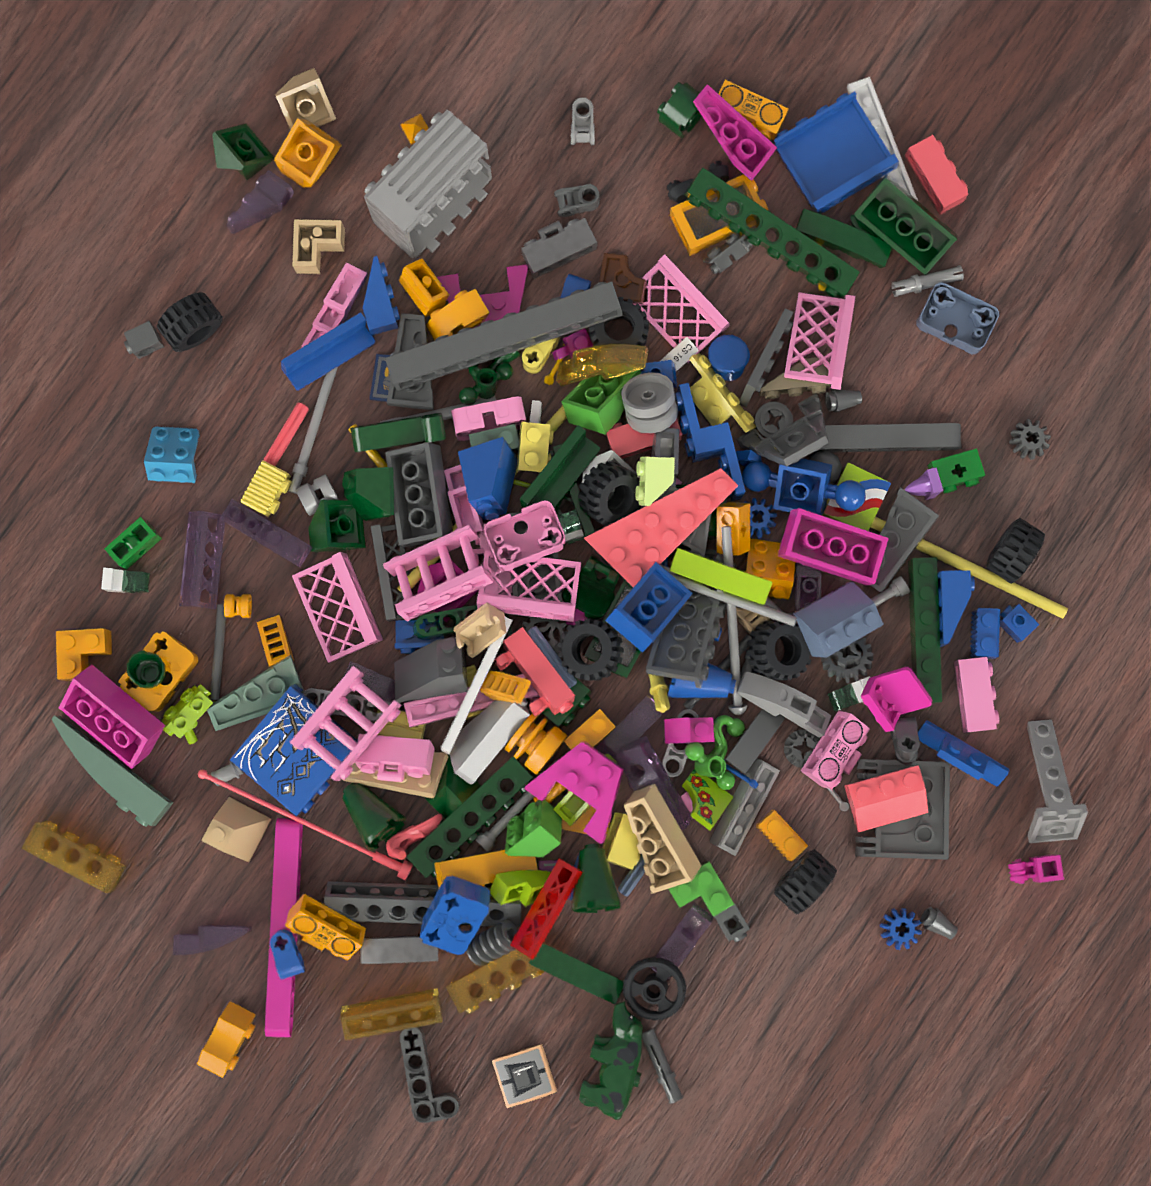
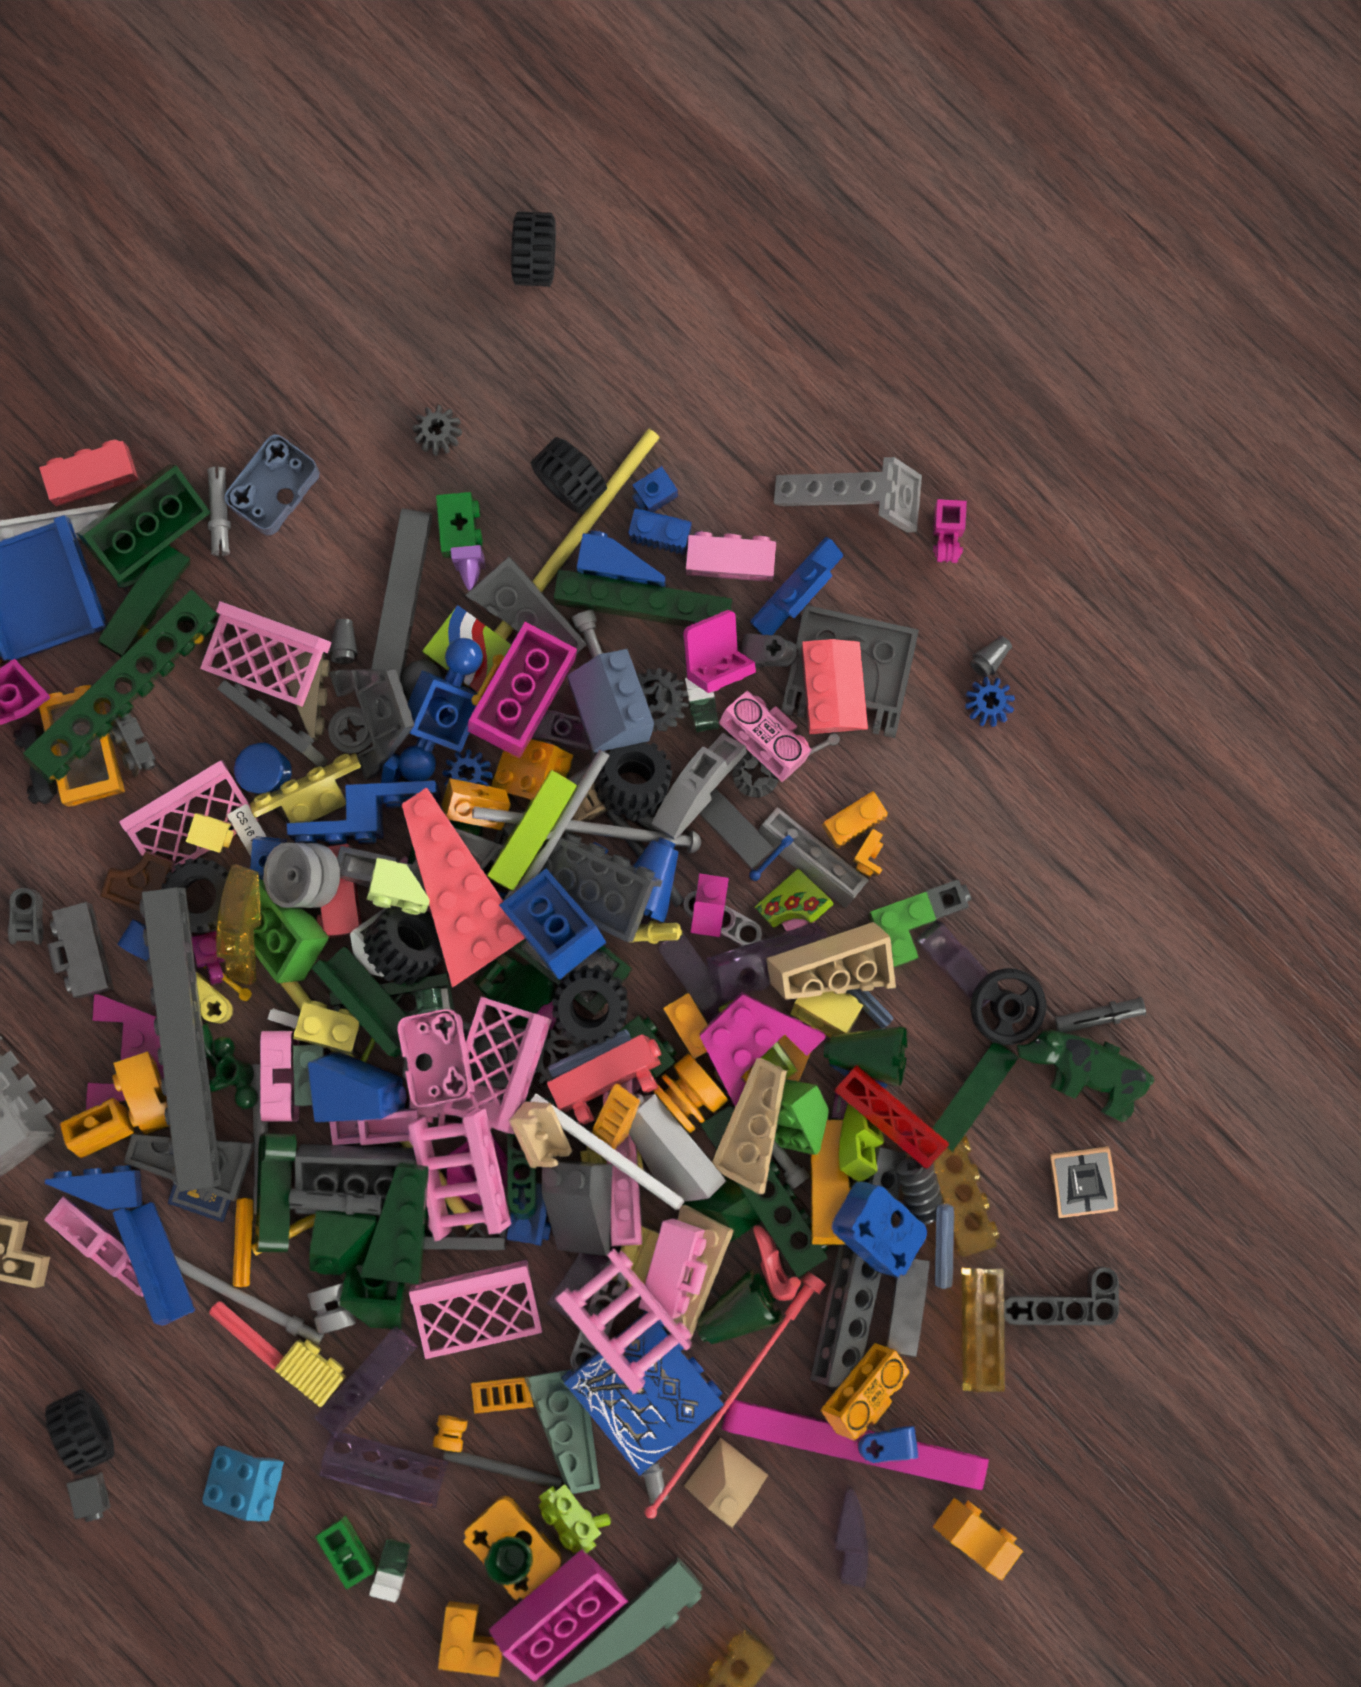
camera: 80 degrees left, 0 degrees up
(356, 417) = (242, 1242): none -> light orange axle
(385, 535) = (399, 1235): none -> dark green wing
(399, 483) = (333, 1201): none -> dark grey pin
(452, 970) = (944, 1245): none -> sand blue axle
(514, 797) = (750, 1135): none -> tan wing
(669, 326) = (210, 833): none -> light yellow brick
(695, 752) = (755, 883): bright green piece -> none
(761, 852) = (869, 848): none -> light orange bracket
(805, 881) = (914, 802): black tyre -> none
(853, 522) = (497, 660): none -> yellow hinge

